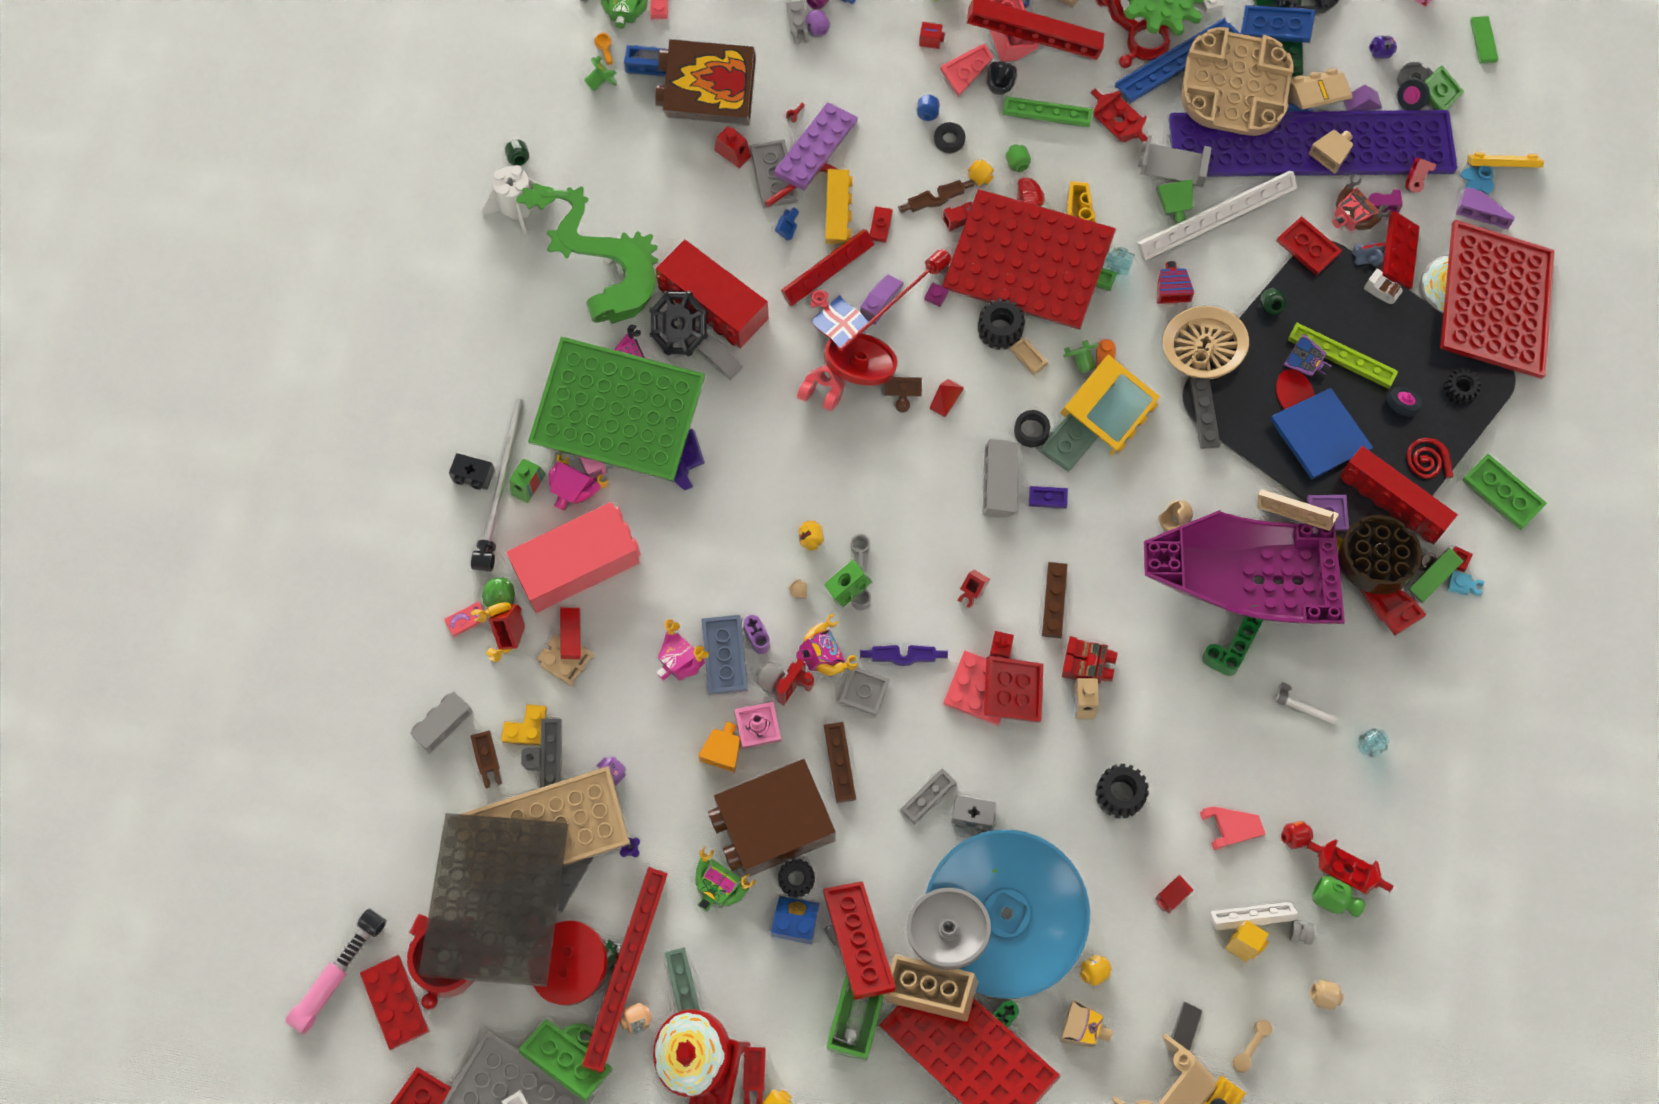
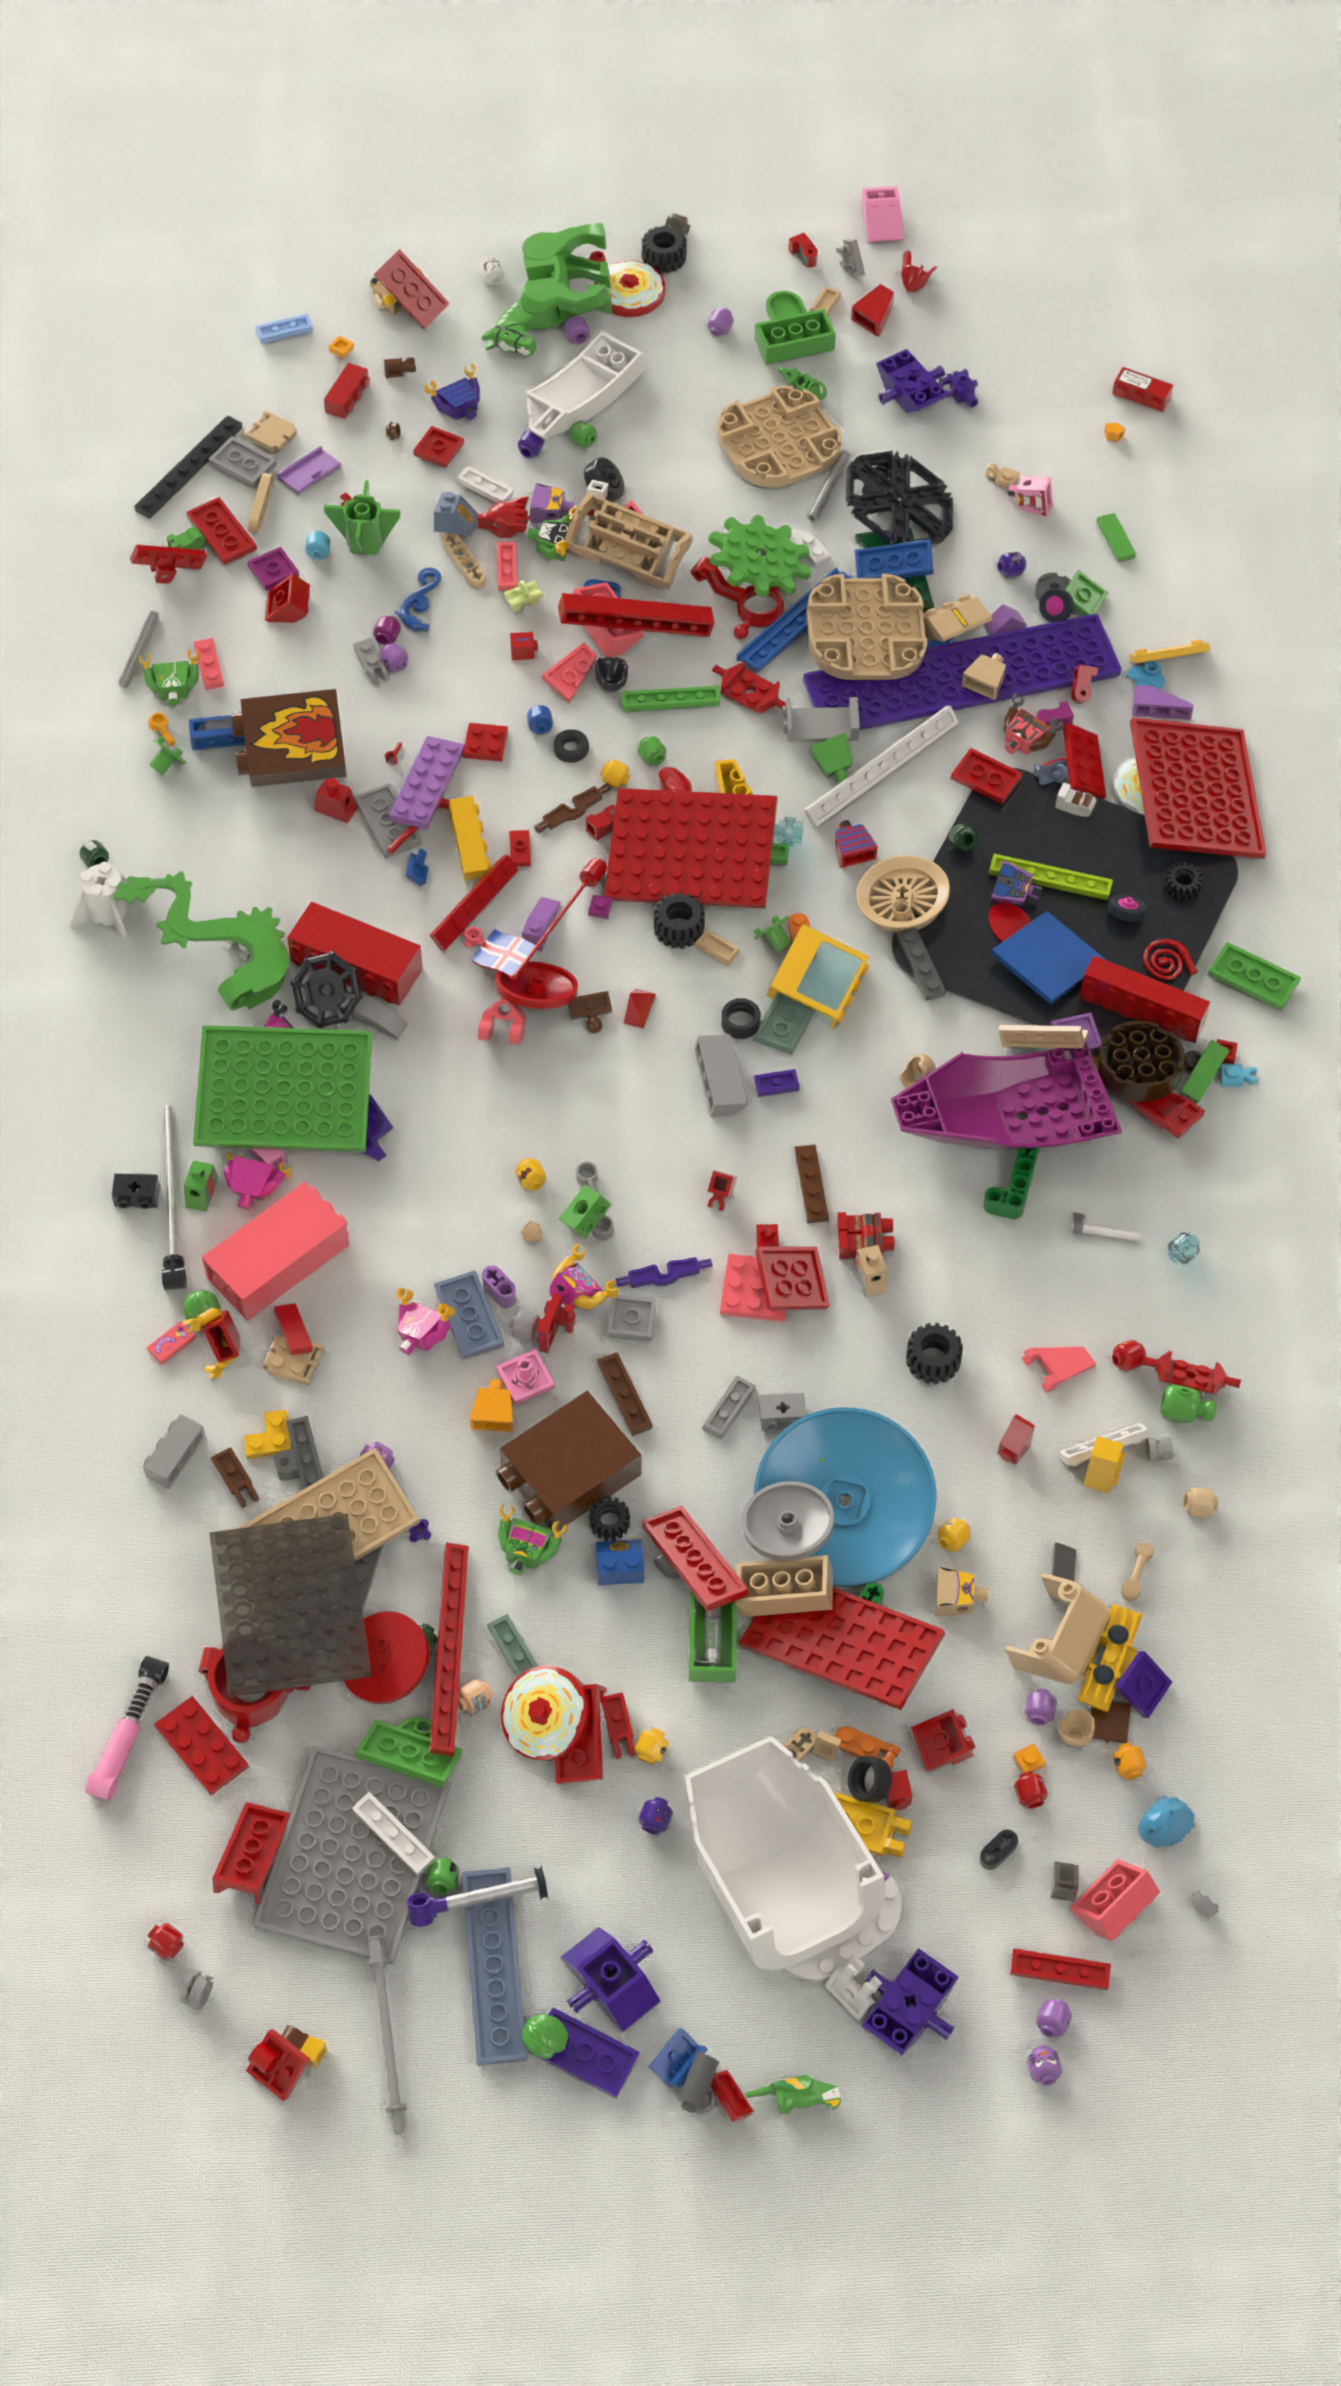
camera: 15 degrees left, 10 degrees down
(876, 118) = (485, 742): none -> red plate

